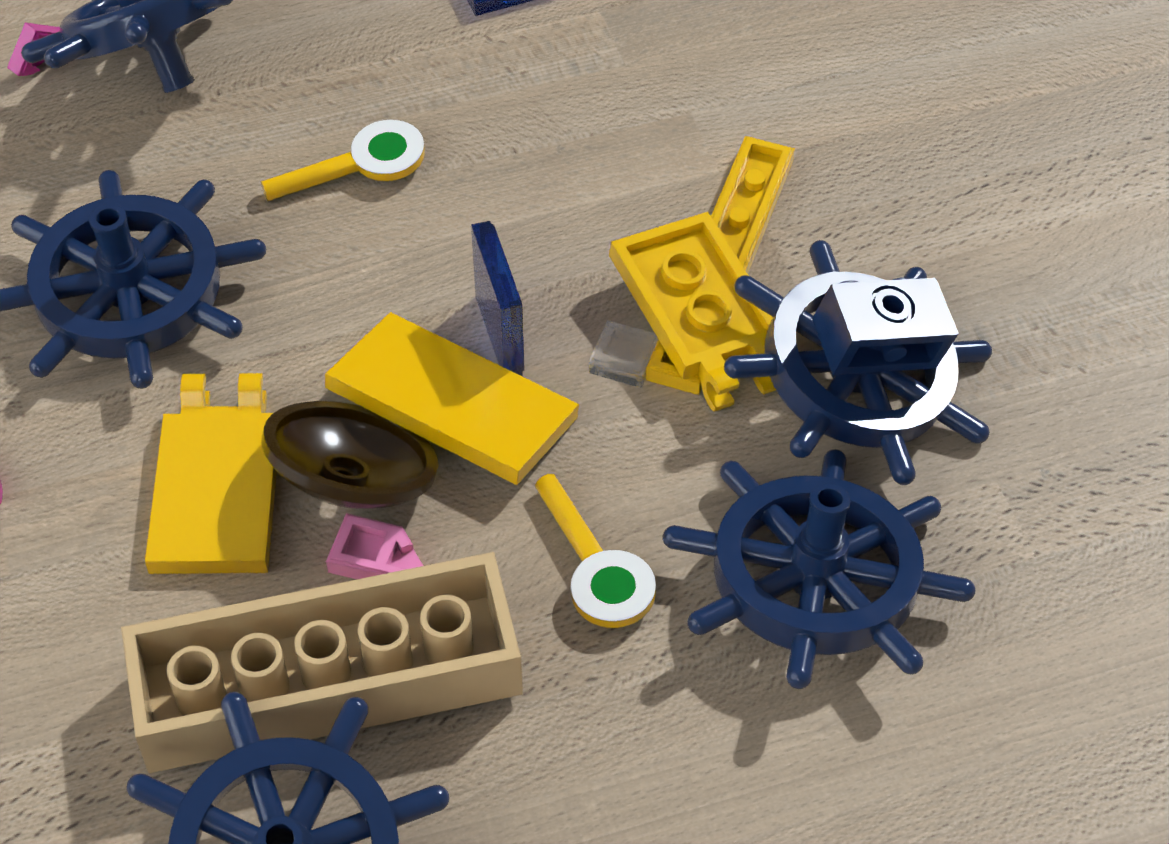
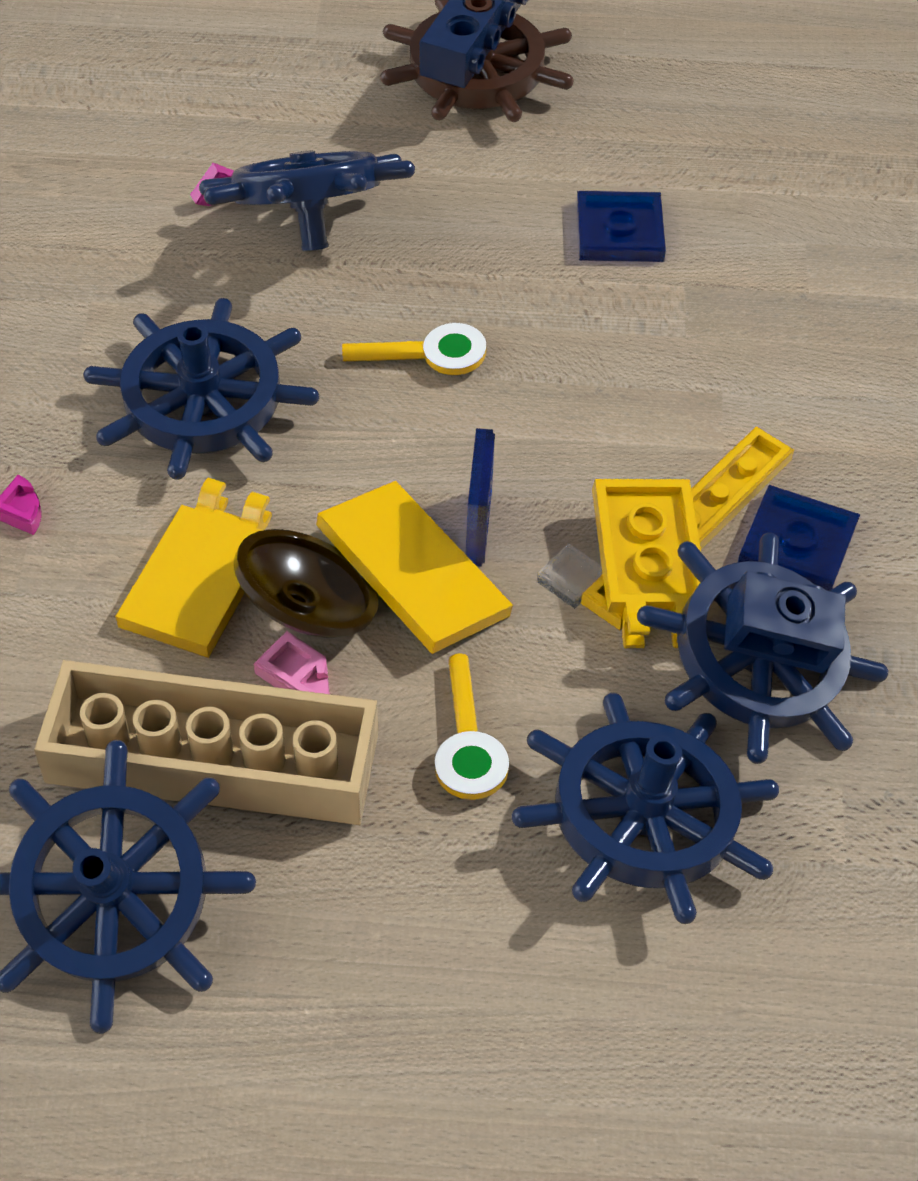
camera: 20 degrees right, 0 degrees up
(853, 225) = (809, 533): none -> clear blue tile

